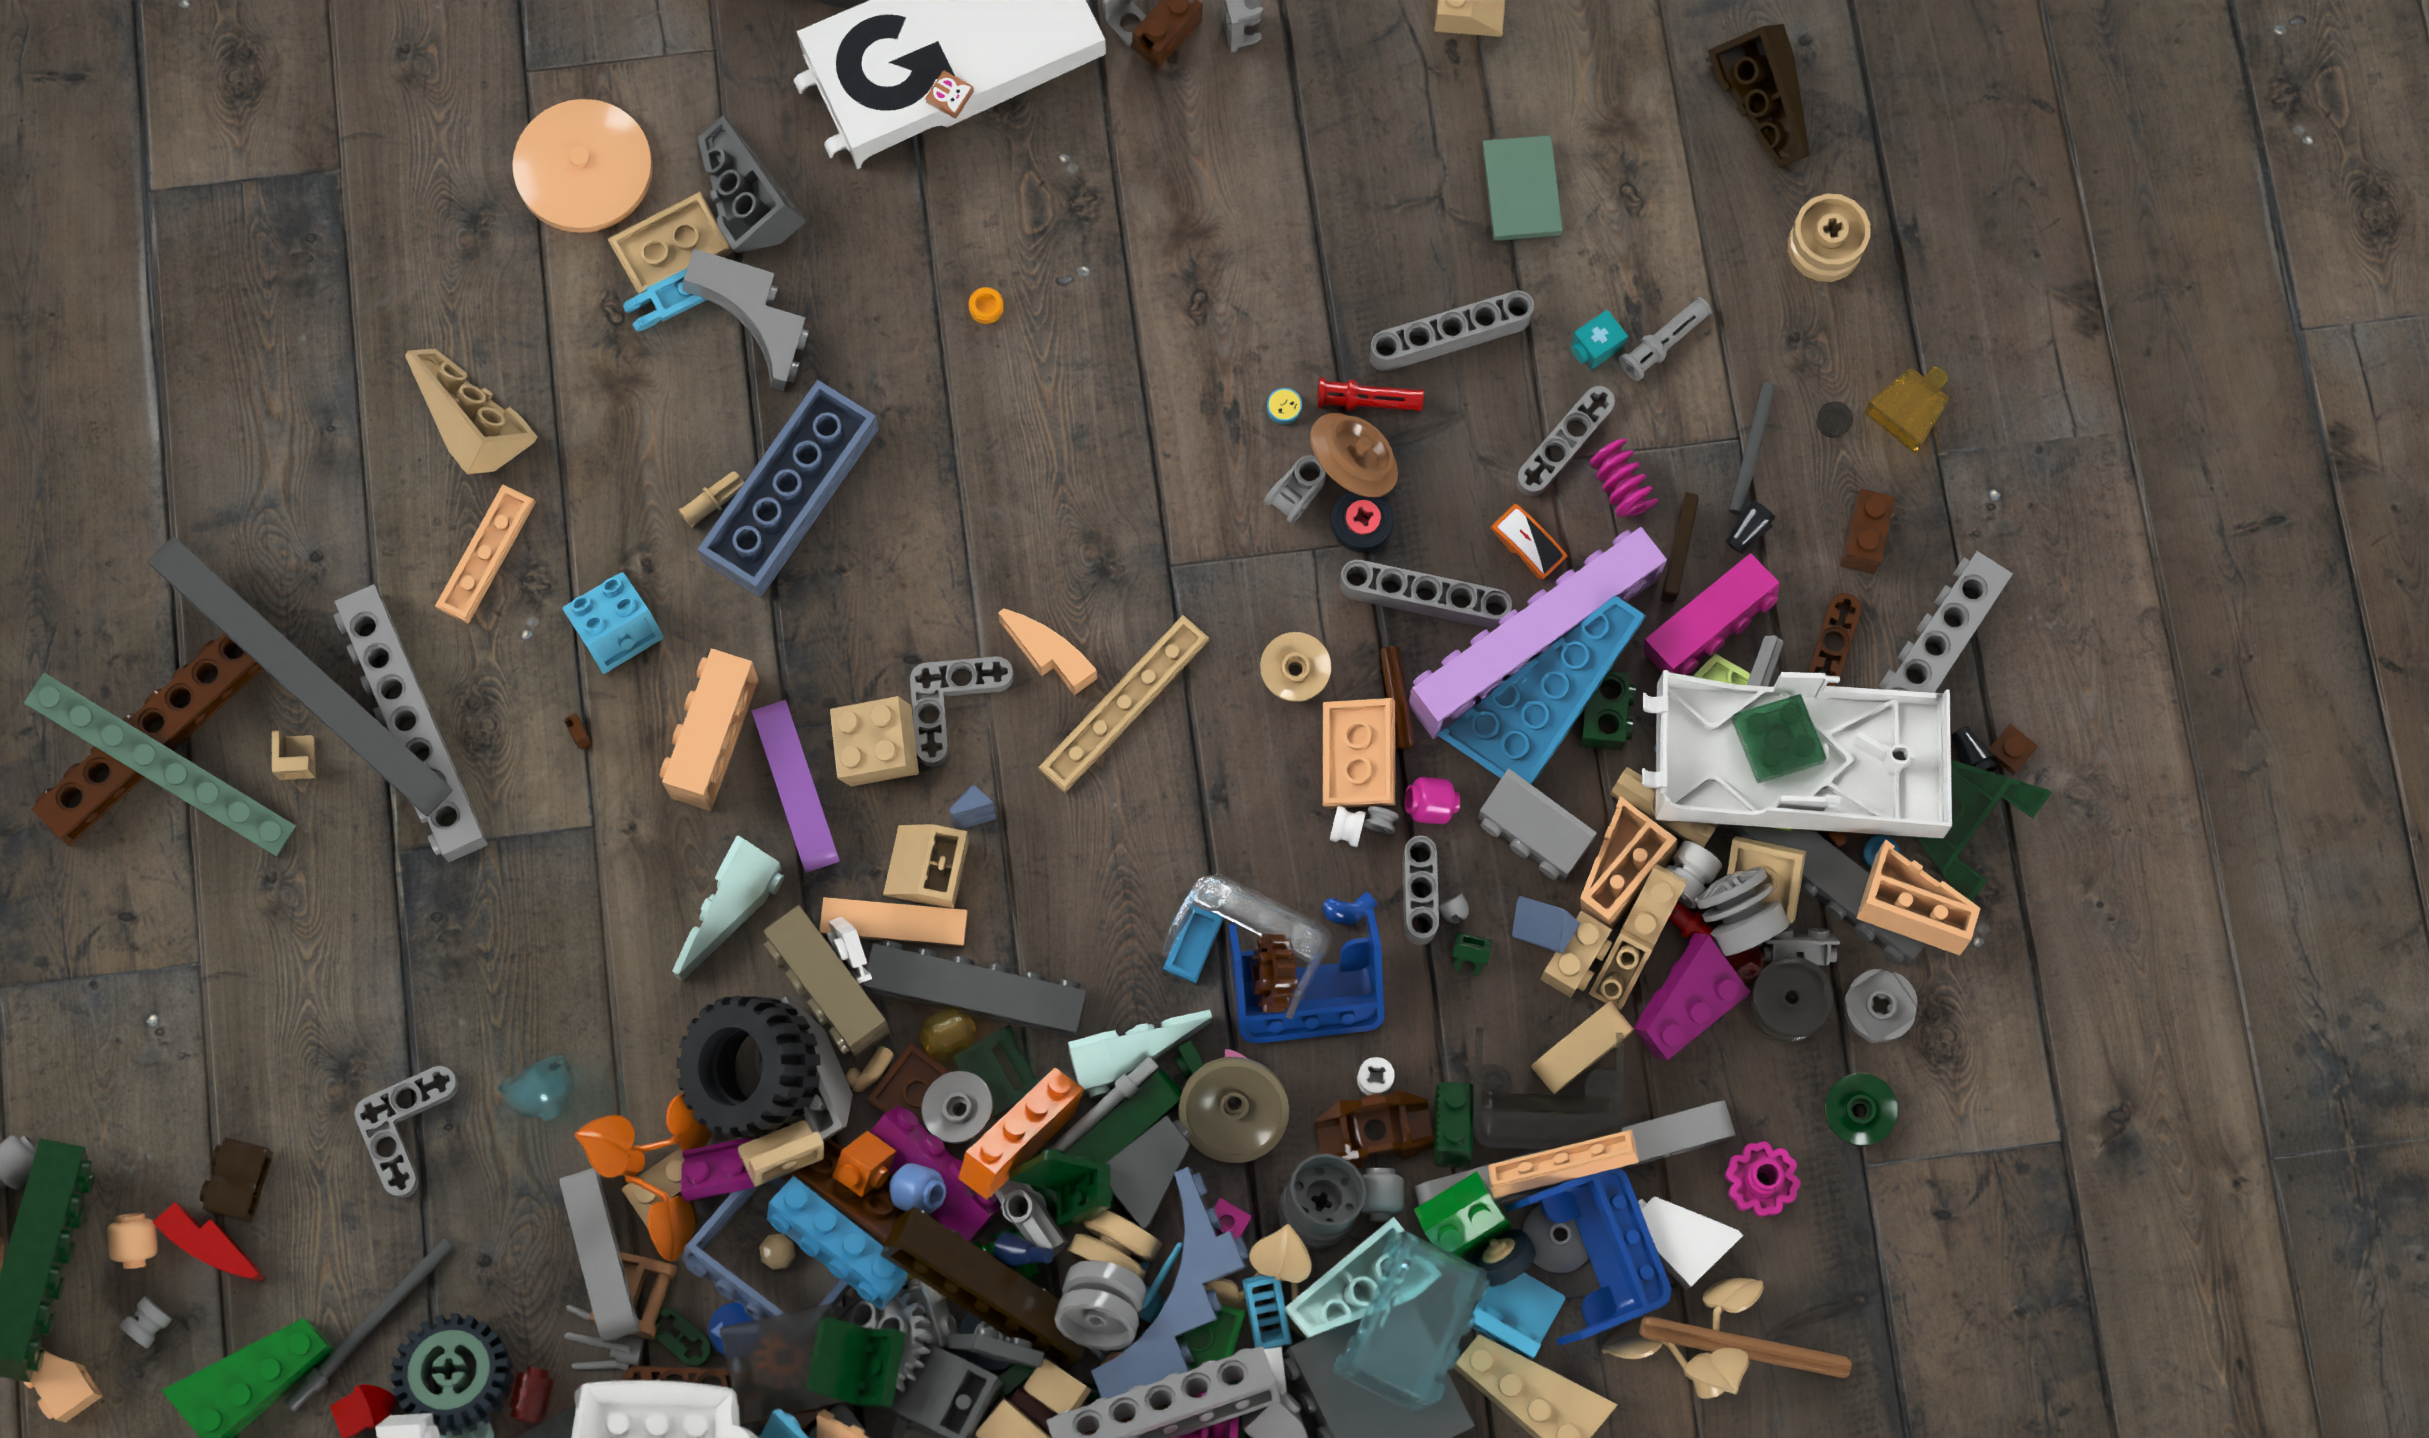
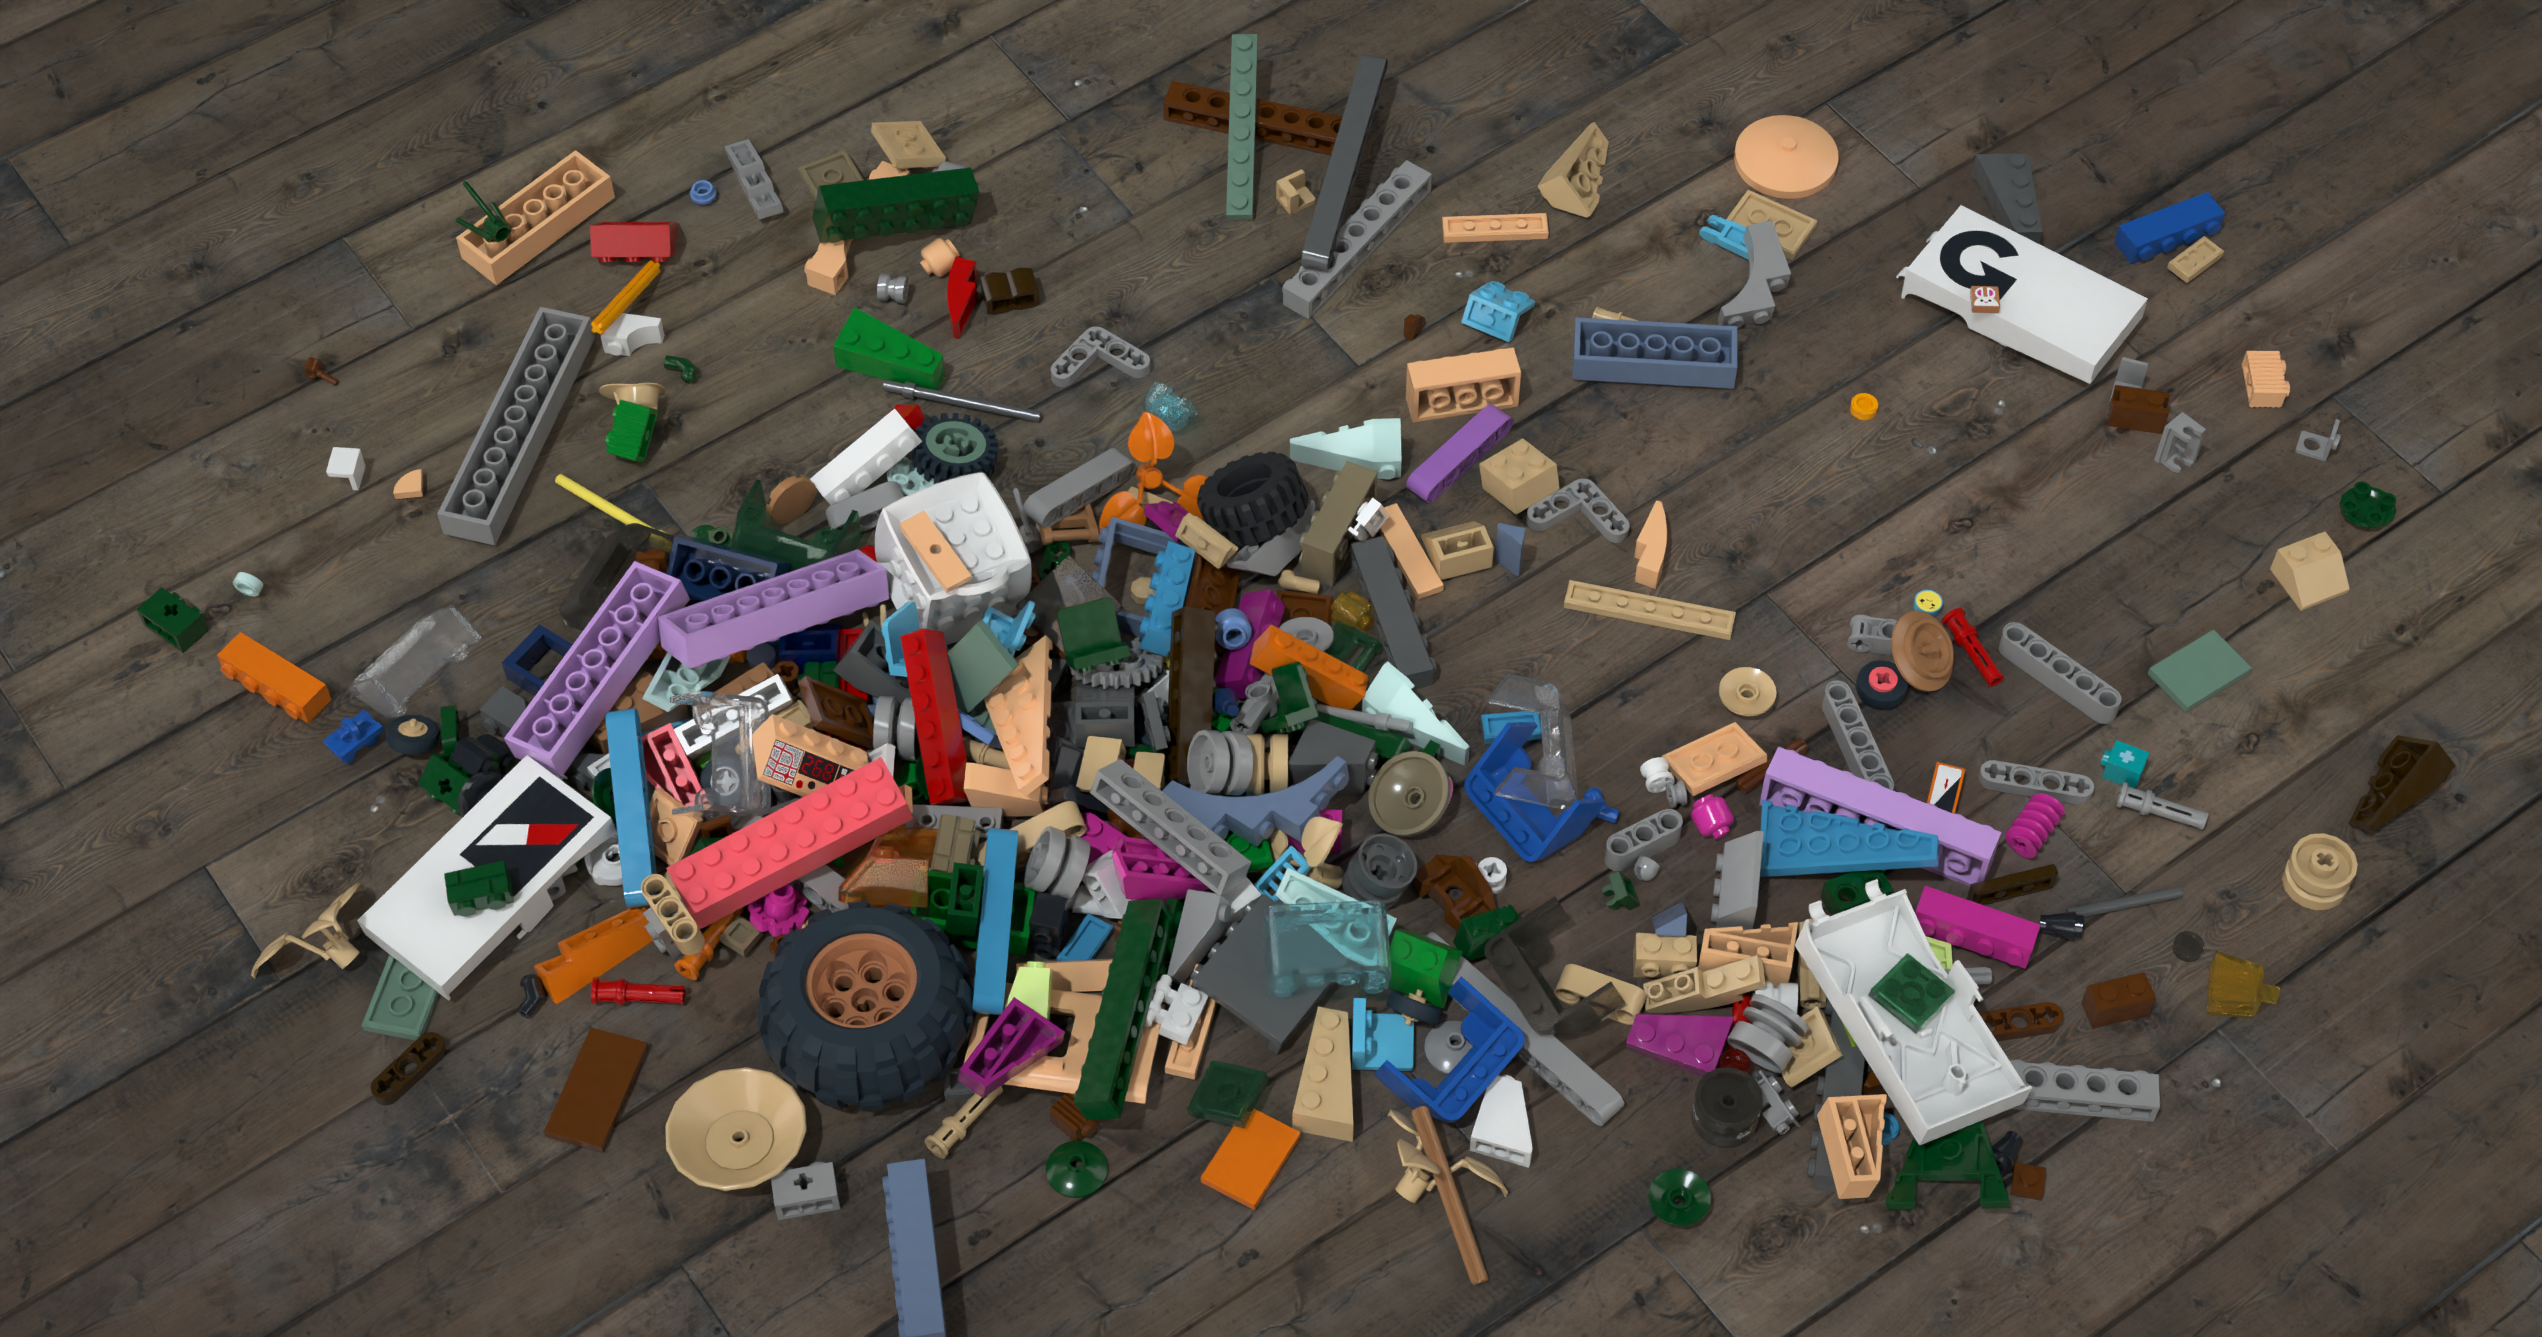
camera: 65 degrees right, 20 degrees down
(748, 198) = (1835, 246): dark grey wedge -> none
(864, 1164) = (1230, 591): orange brick -> none
(1273, 973) = (1520, 756): reddish brown gear -> none
(1383, 1194) = (1411, 911): light grey head -> none
(1563, 1163) = (1504, 999): light nougat tile -> none
(1746, 1188) = (1583, 1157): dark pink plant -> none
(1883, 985) = (1765, 1194): light grey plate -> none

